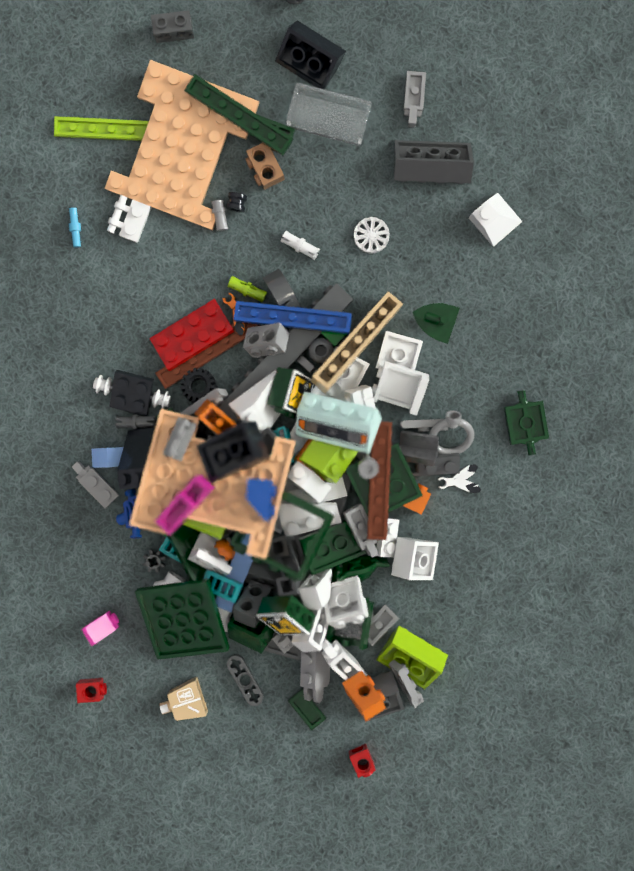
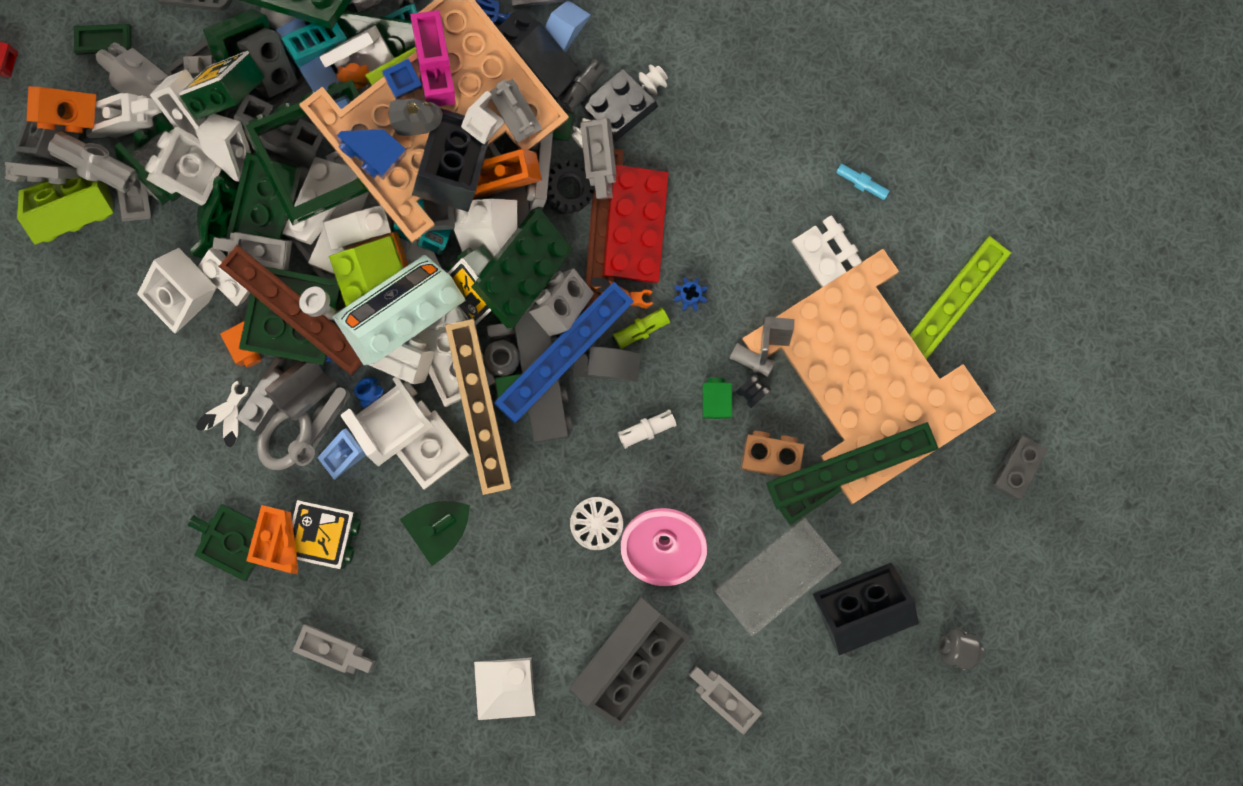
camera: 125 degrees right, 5 degrees down
(169, 379) = (599, 156): none -> light grey hinge
(199, 450) = (482, 121): none -> white panel
(200, 211) = (775, 332): none -> flat silver panel
(209, 512) = (402, 79): none -> blue plate
(213, 277) = (686, 287): none -> blue gear
(225, 488) = (414, 116): none -> dark grey rock
(256, 218) = (716, 399): none -> green brick
(263, 373) = (522, 268): none -> dark green plate
(363, 181) = (660, 560): none -> bright pink dish
(380, 656) = (92, 161): none -> light grey piece
(392, 416) = (368, 391): none -> blue plate
(436, 400) = (341, 454): none -> light blue slope
(487, 377) = (324, 534): none -> piece
(510, 398) = (274, 541): none -> orange wing
(544, 326) = (331, 651): none -> light grey hinge

